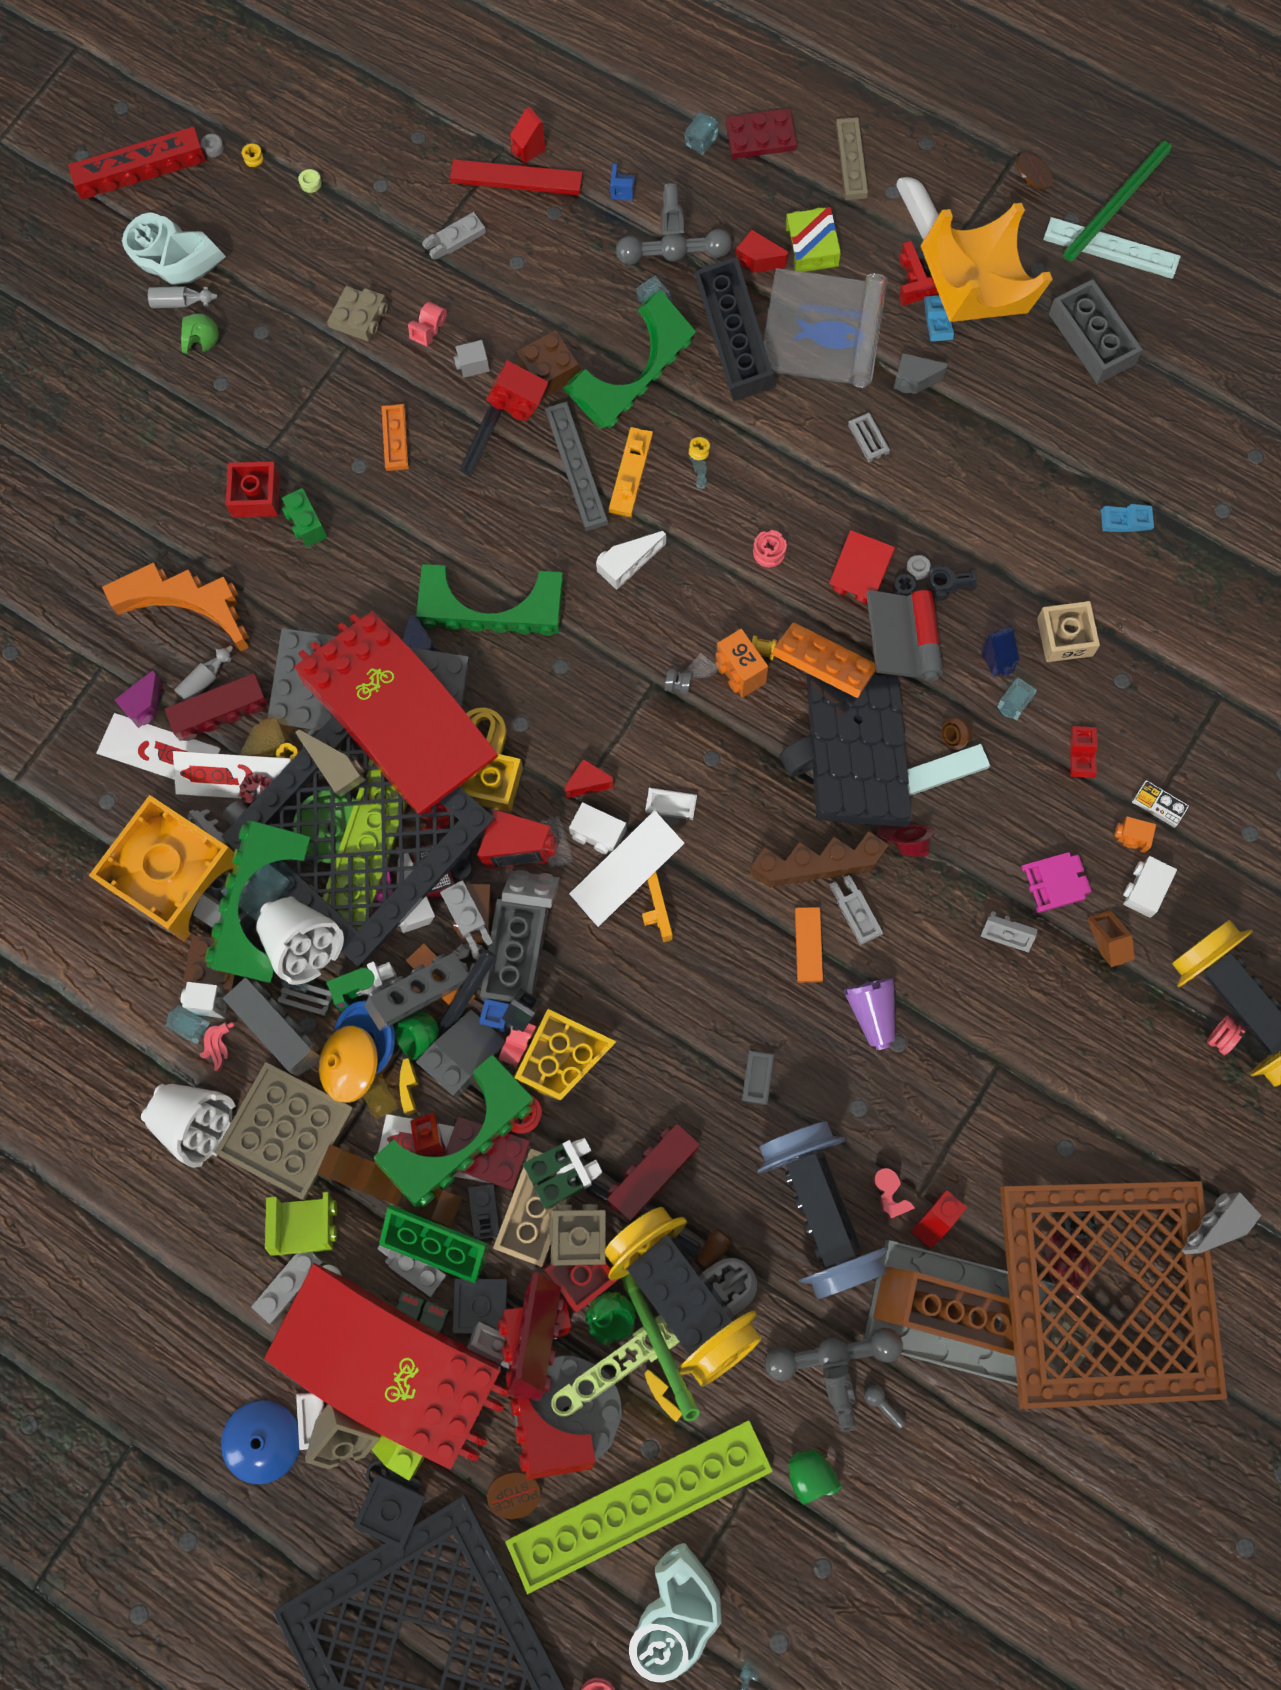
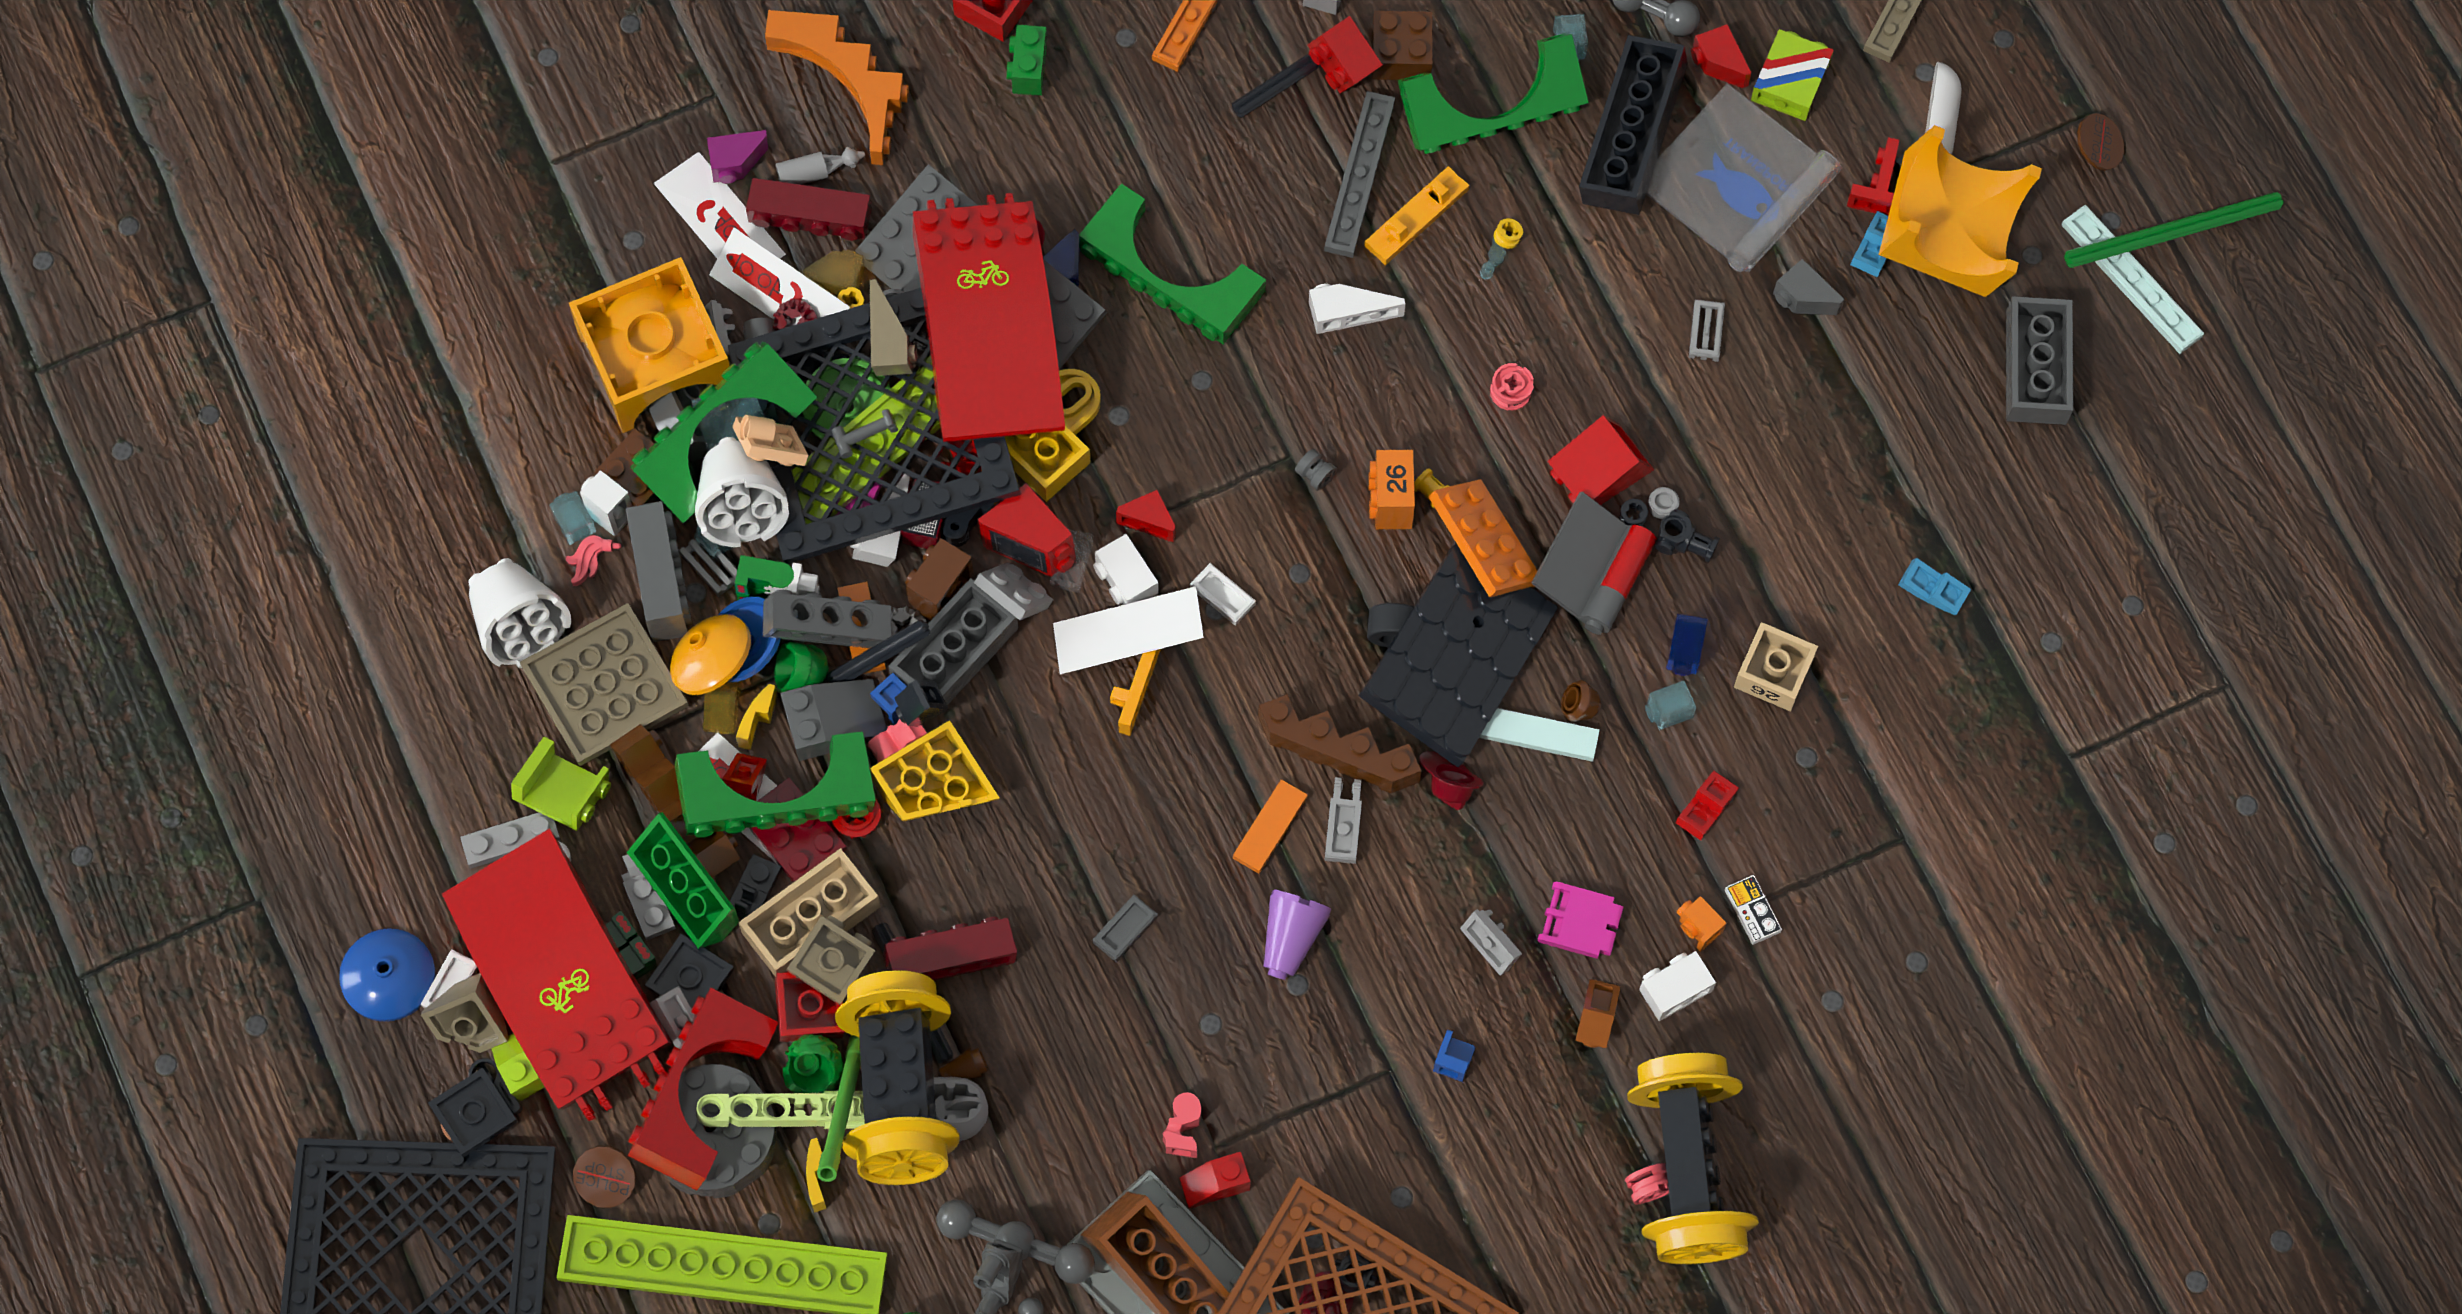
camera: 25 degrees right, 5 degrees down
(296, 888) = (769, 441): none -> light nougat plate
(348, 854) = (845, 440): none -> dark grey piece
(465, 913) = (926, 571): light grey hinge -> none
(535, 1338) = (724, 1026): dark red slope -> none
(567, 1166) = (853, 887): dark green hips -> none
(702, 667) = (1352, 471): clear tile -> none
(823, 1209) = (1110, 1027): brick -> none
(1037, 1028) = (1453, 1057): none -> blue panel

